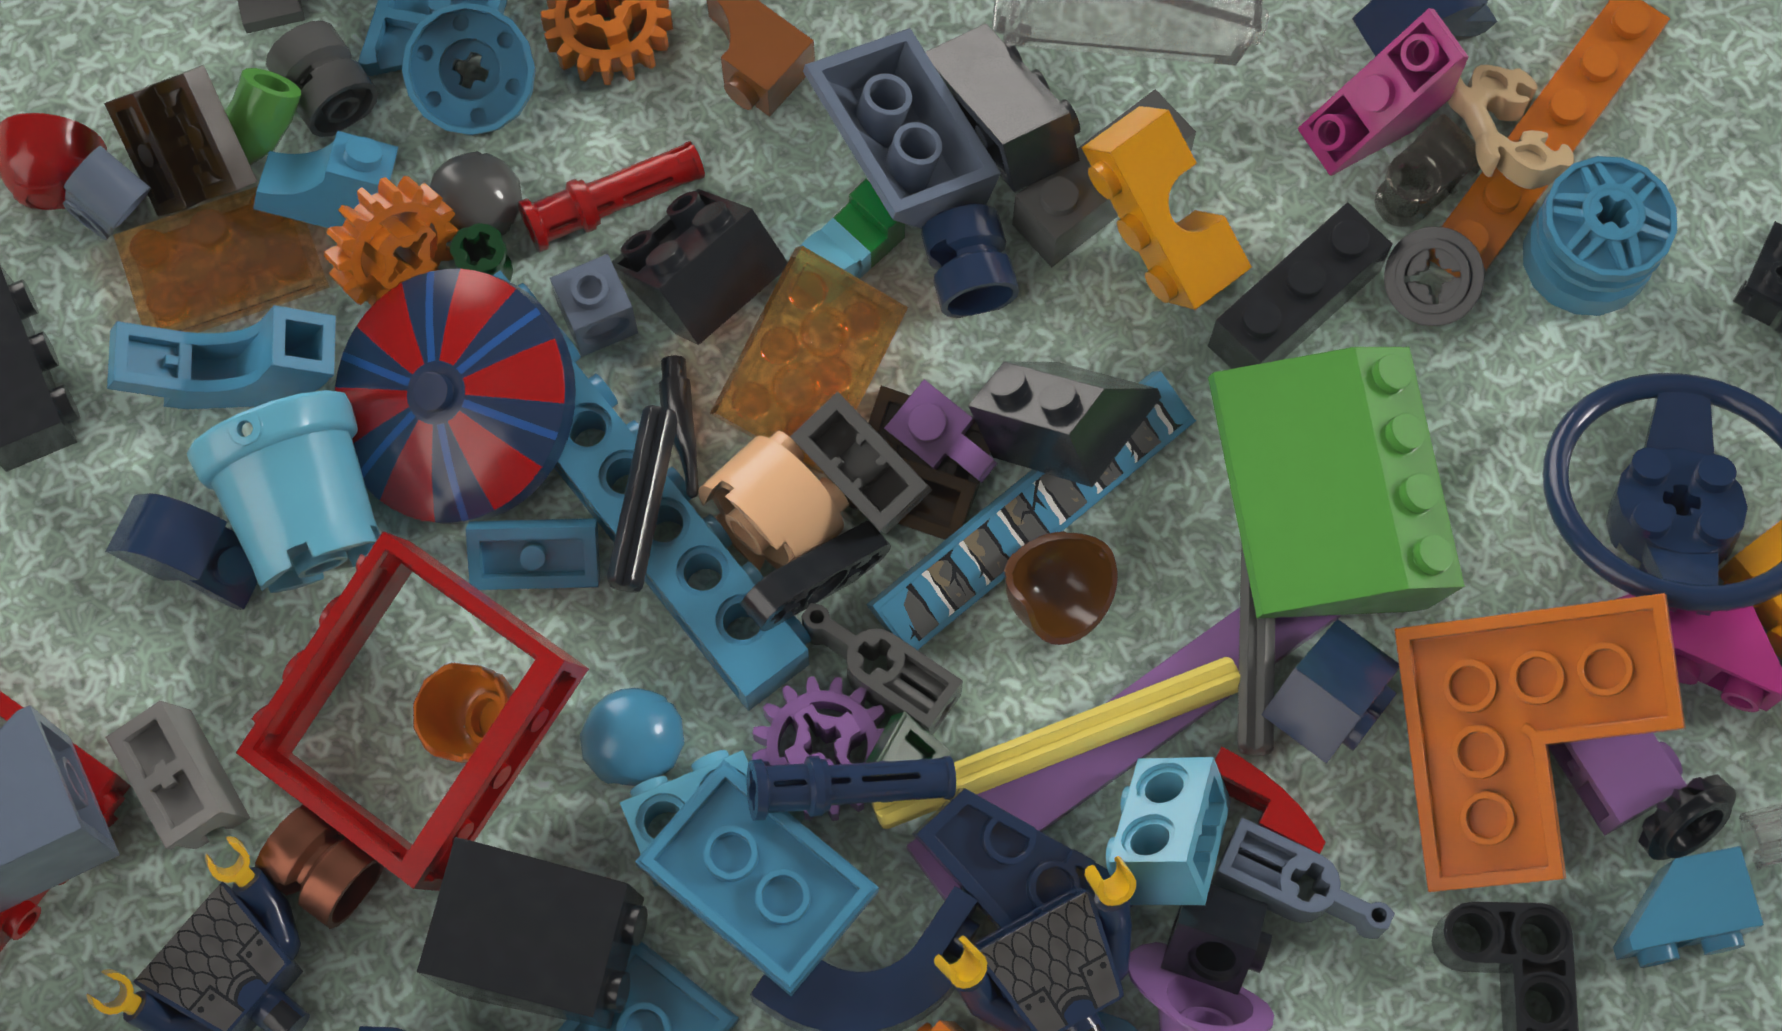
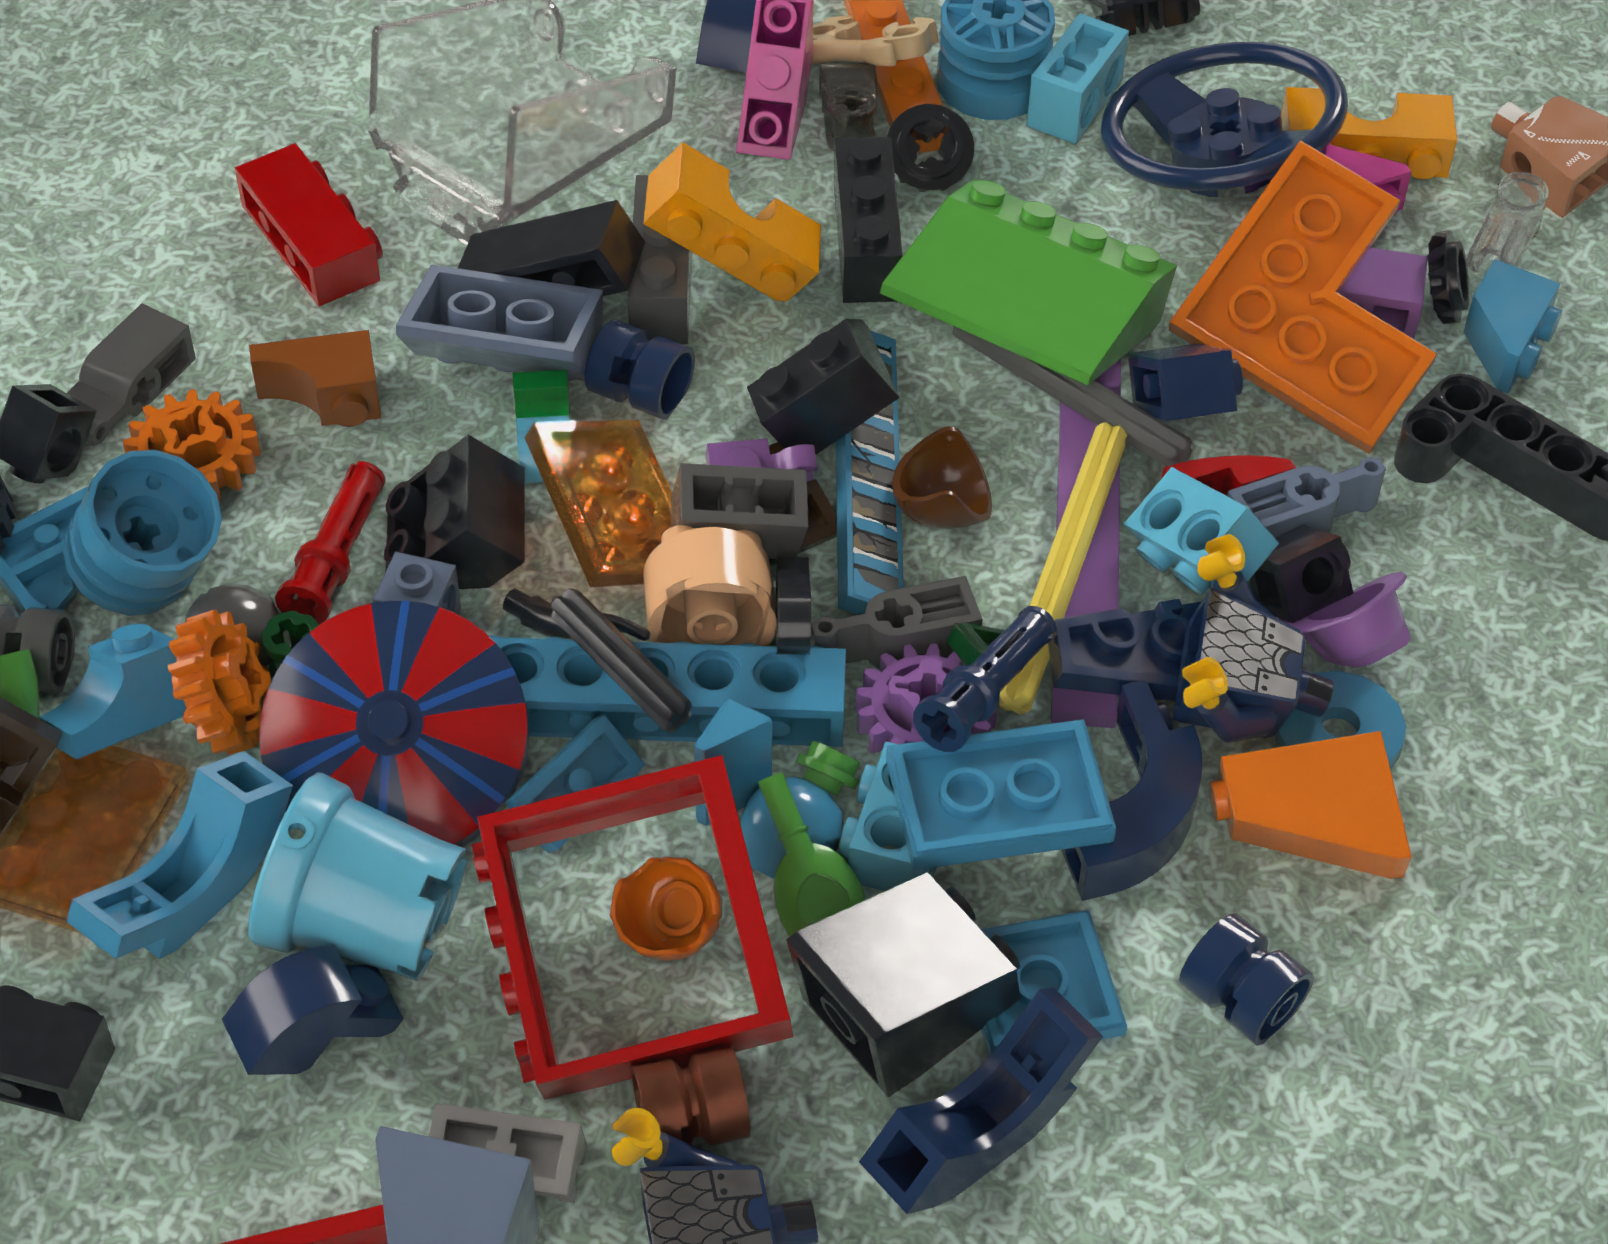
camera: 50 degrees left, 20 degrees down
(579, 799) = (810, 878): none -> bright green piece
(619, 652) = (746, 747): none -> dark azure slope
(703, 722) = (829, 768): none -> bright green plate
(1633, 329) = (1077, 78): none -> medium azure brick

